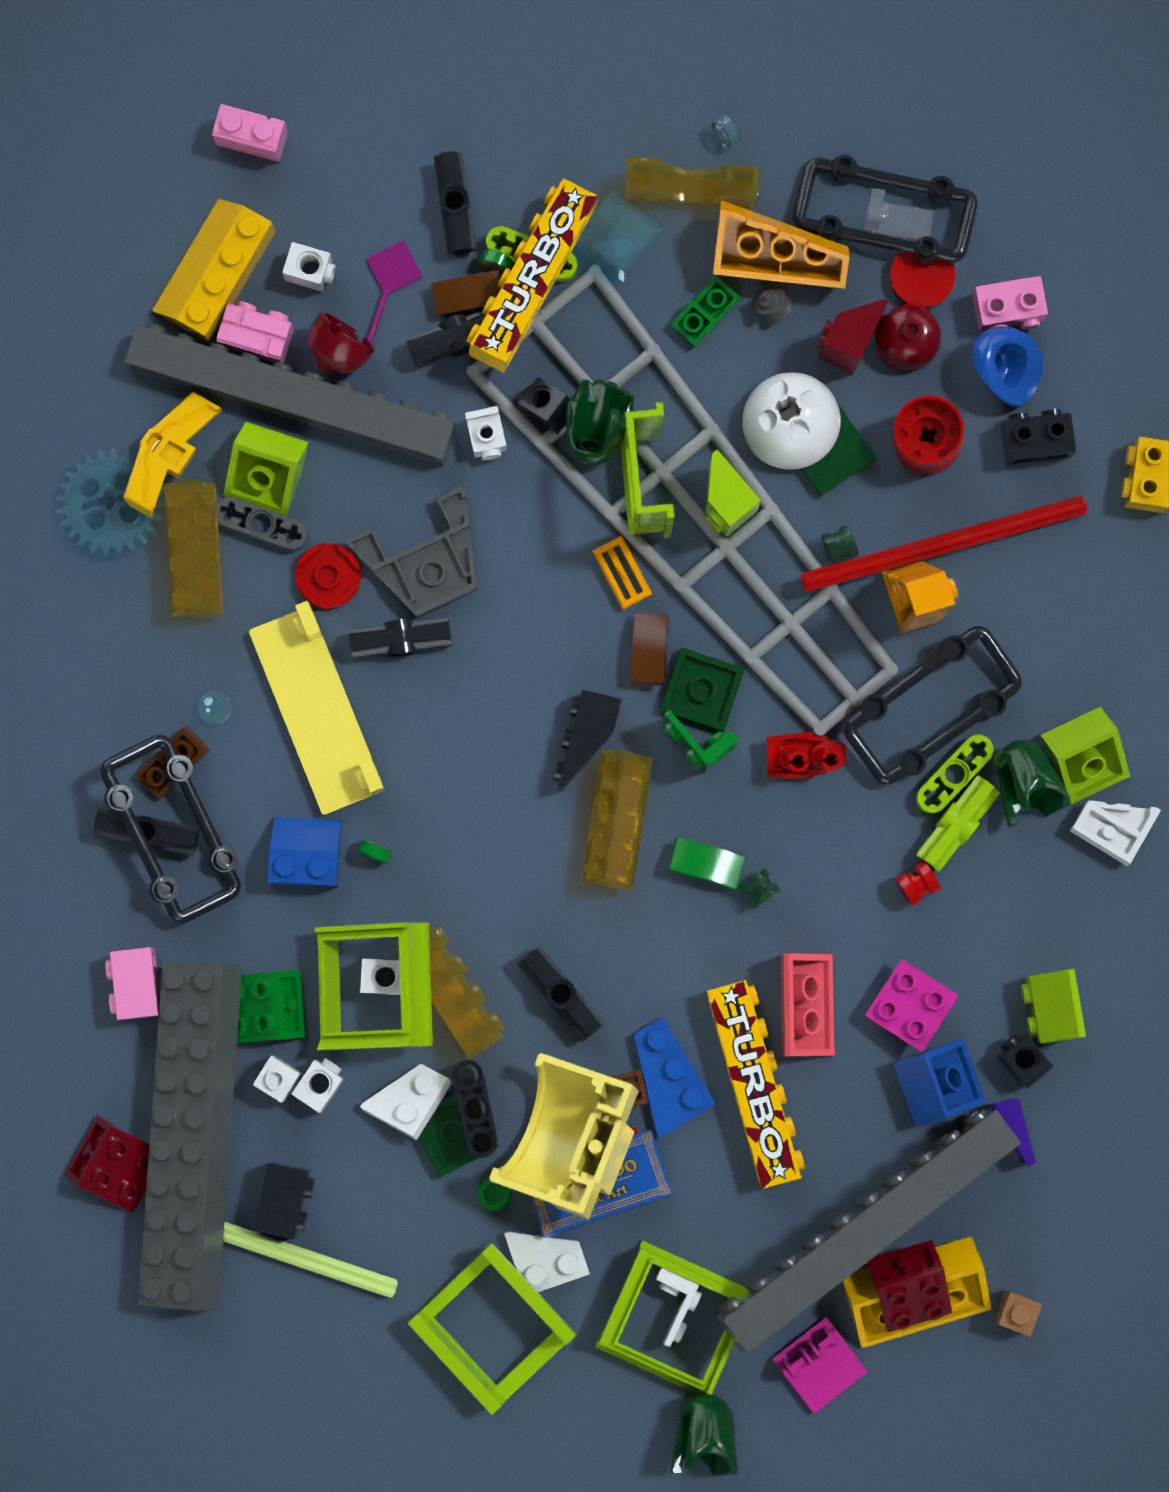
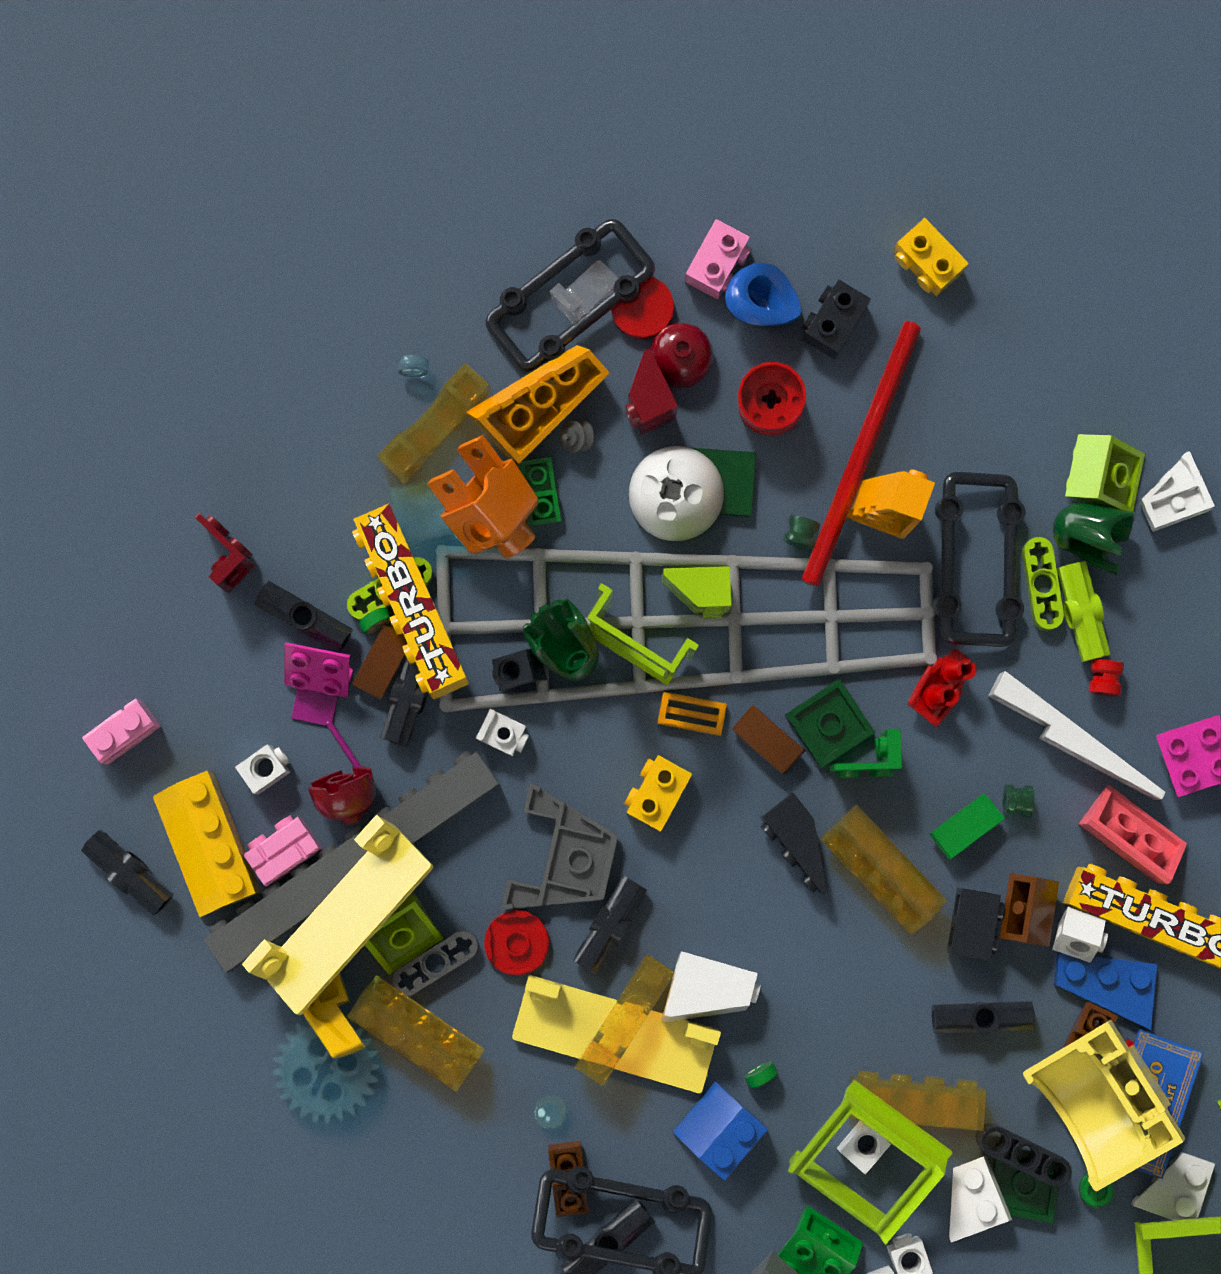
camera: 50 degrees left, 0 degrees up
(142, 225) = (127, 872): none -> black piece
(240, 419) = (344, 918): none -> light yellow bracket
(332, 704) = (624, 1020): none -> clear yellow arch
(409, 754) = (708, 989): none -> white slope
(420, 246) = (317, 670): none -> dark pink hinge
(450, 116) = (232, 569): none -> dark red bracket
(536, 593) = (658, 792): none -> yellow brick
(630, 928) = (975, 924): none -> black brick
(658, 277) = (491, 505): none -> orange piece
(677, 963) = (1029, 909): none -> reddish brown brick
(689, 1021) = (1080, 935): none -> white brick
(844, 888) = (1069, 737): none -> white slope

